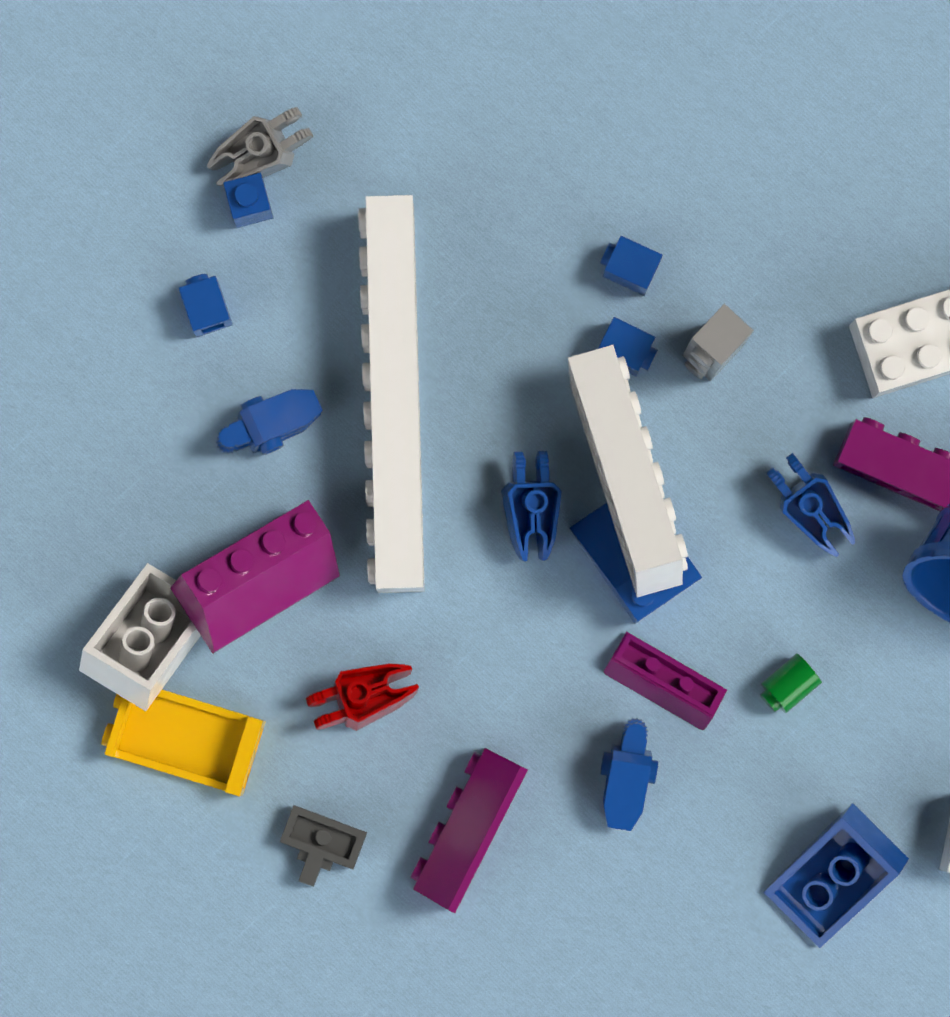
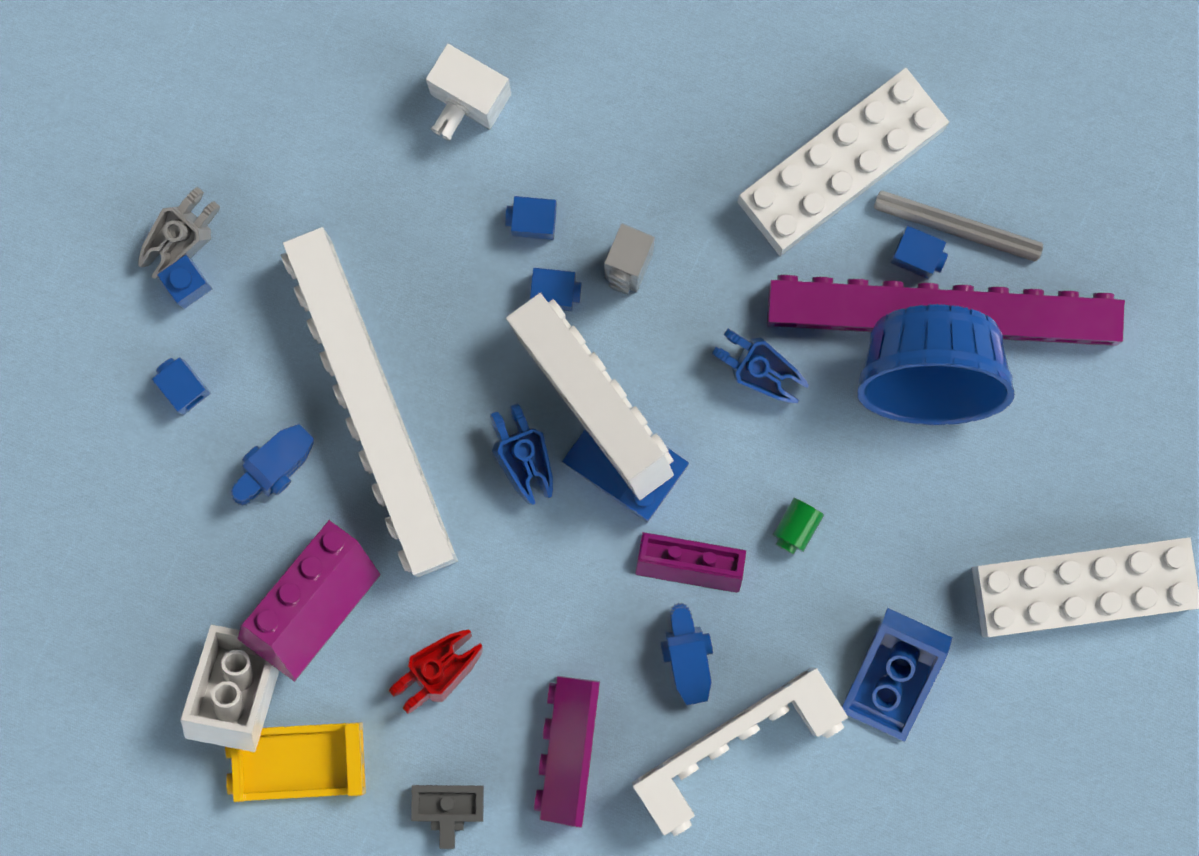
camera: 15 degrees left, 0 degrees up
(611, 107) = (467, 90): none -> white brick
(737, 862) = (809, 697): none -> white plate

